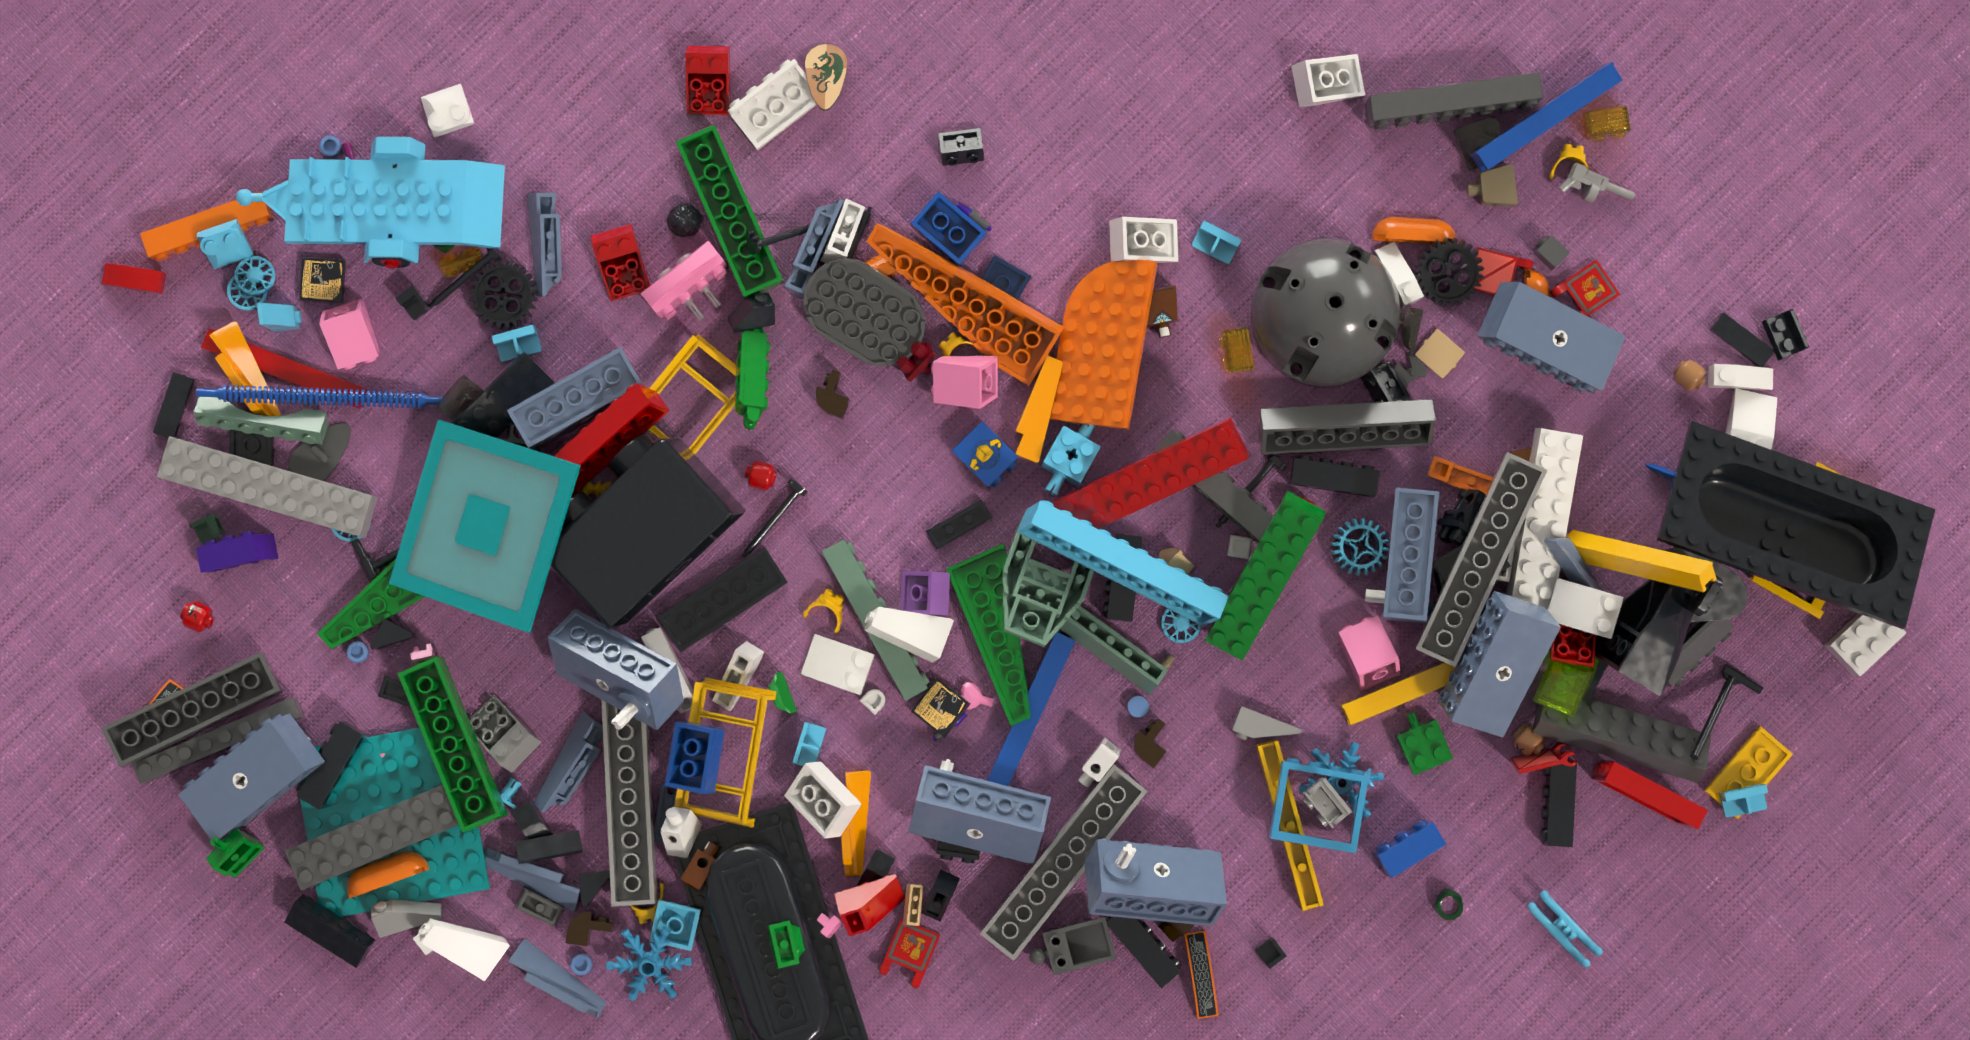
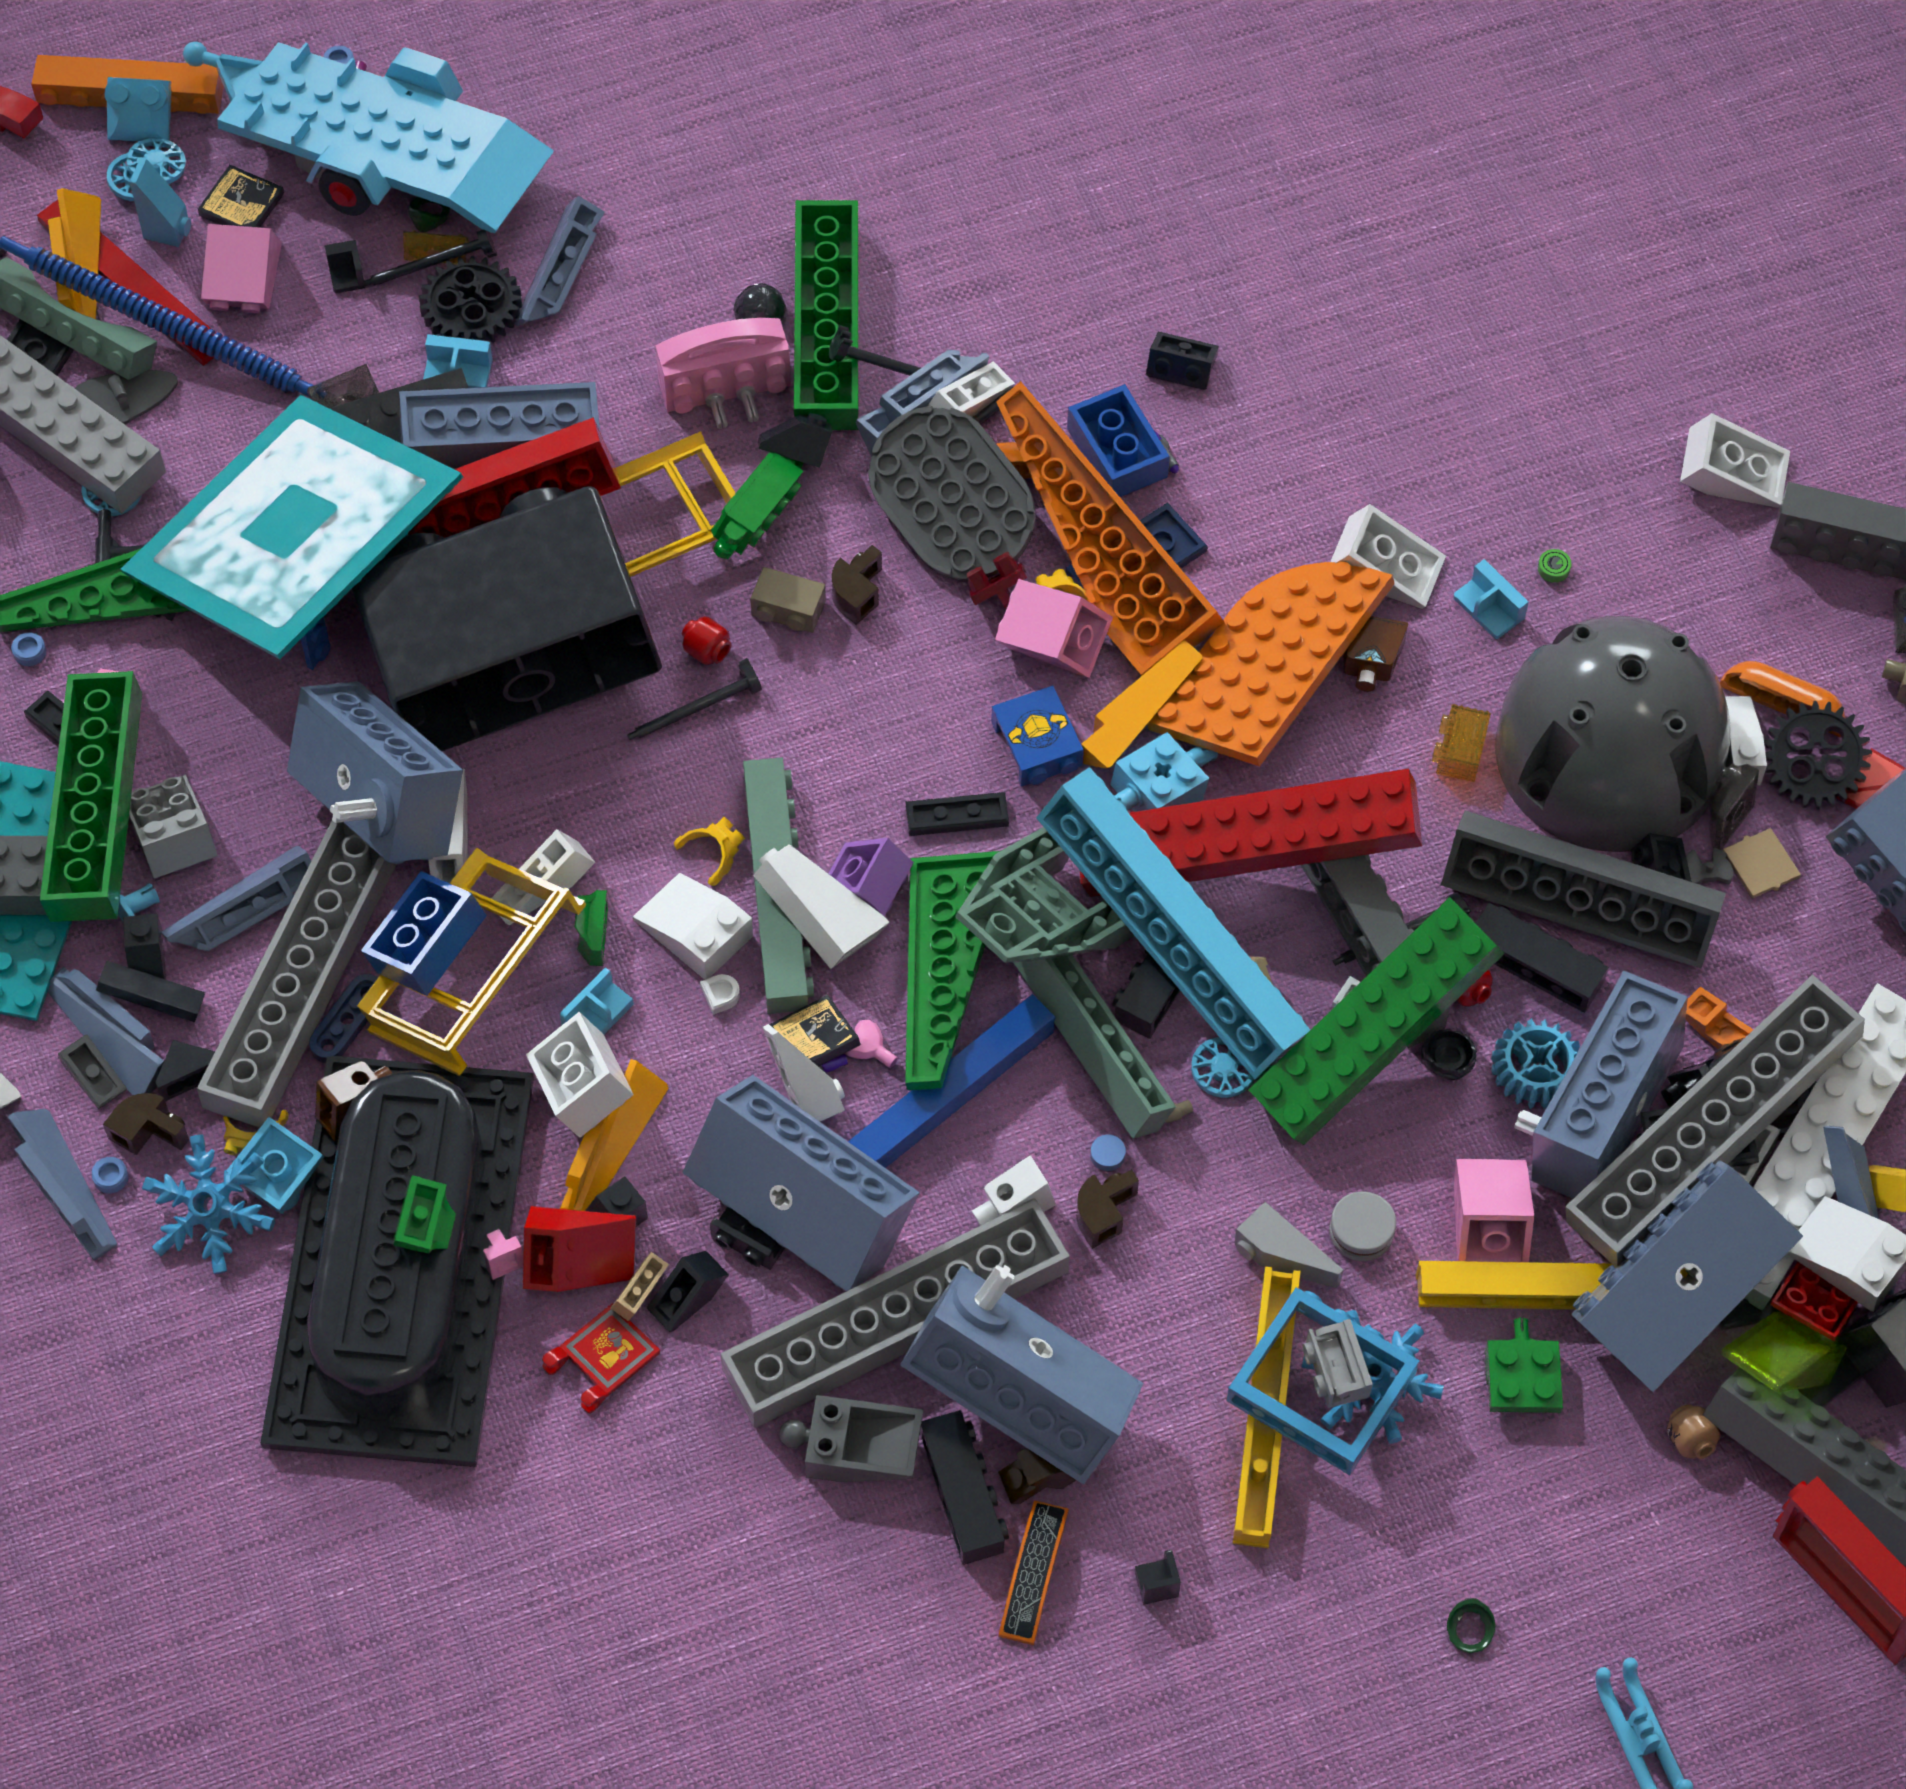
camera: 20 degrees right, 25 degrees down
(390, 634) = (84, 641): black slope -> none
(447, 110) = (512, 77): white slope -> none
(620, 262) = (646, 314): red slope -> none
(680, 831) = (350, 1032): white torso -> none
(708, 80) = (875, 160): red slope -> none
(722, 599) = (571, 776): black plate -> none
(773, 104) = (951, 217): white bracket -> none
(796, 425) = (788, 600): none -> dark tan brick
(825, 74) = (1037, 208): shield -> none
(952, 743) = (805, 1081): none -> white slope
(1244, 199) = (1554, 565): none -> bright green tile
(1300, 692) = (1362, 1226): none -> light grey head
(1310, 565) = (1449, 1054): none -> black hair
(1408, 847) = (1440, 1504): blue brick -> none
(1544, 759) = (1708, 1460): red flag -> none
(1559, 805) = (1707, 1542): black brick -> none

